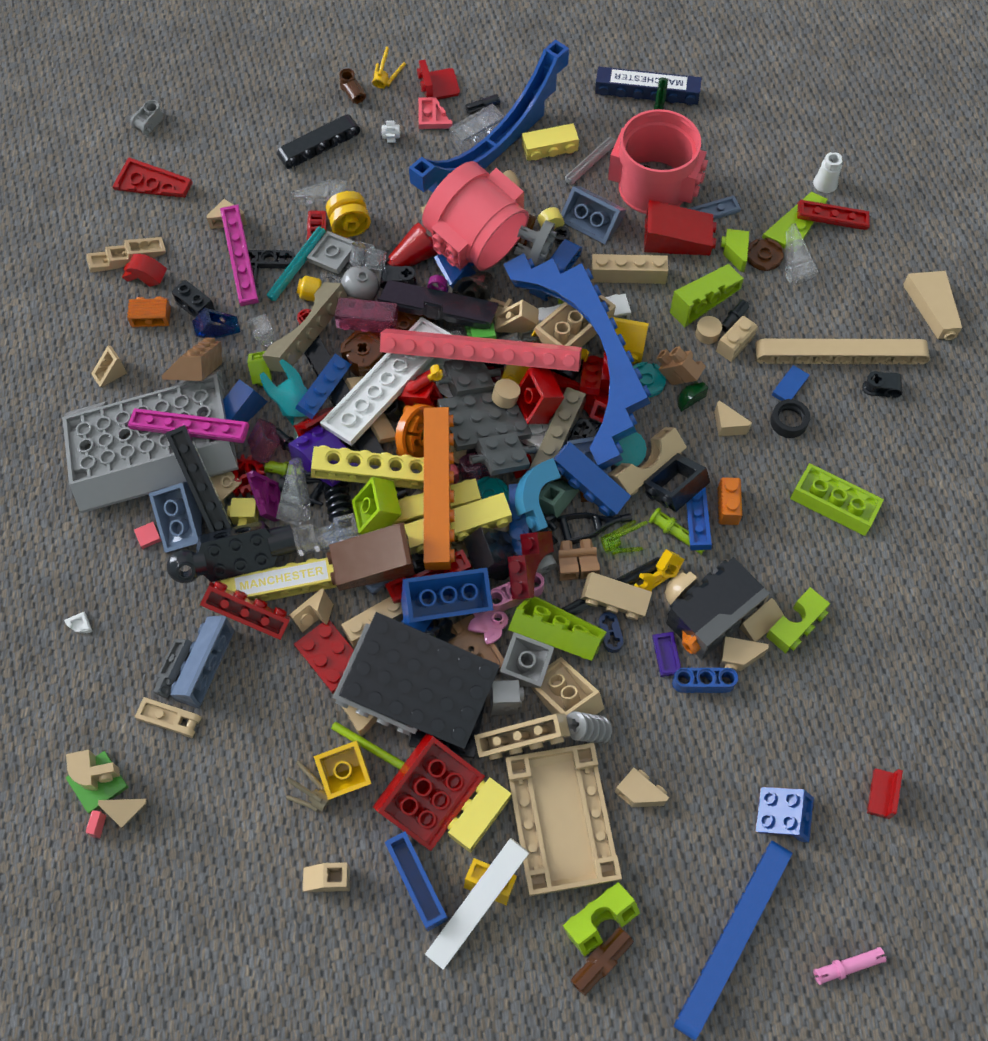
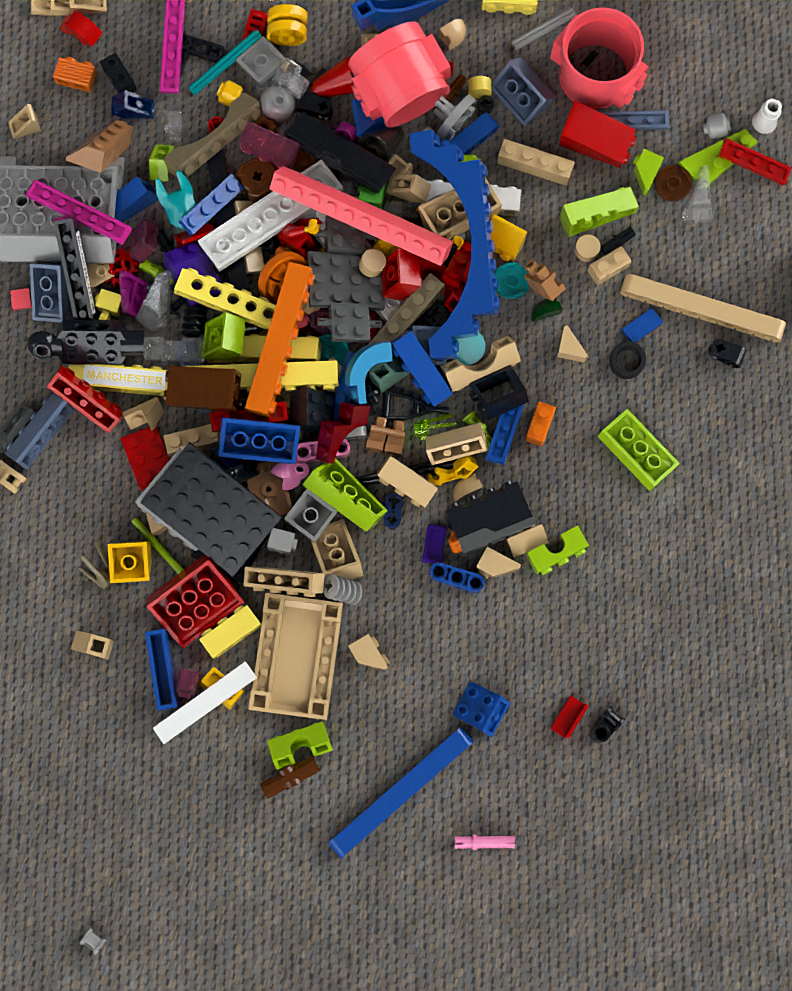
camera: 15 degrees right, 15 degrees up
(451, 886) = (188, 683): none -> clear pink brick
(653, 542) = (456, 443): none -> tan brick
(785, 195) = (717, 126): none -> light grey head
(927, 785) = (609, 723): none -> black piece

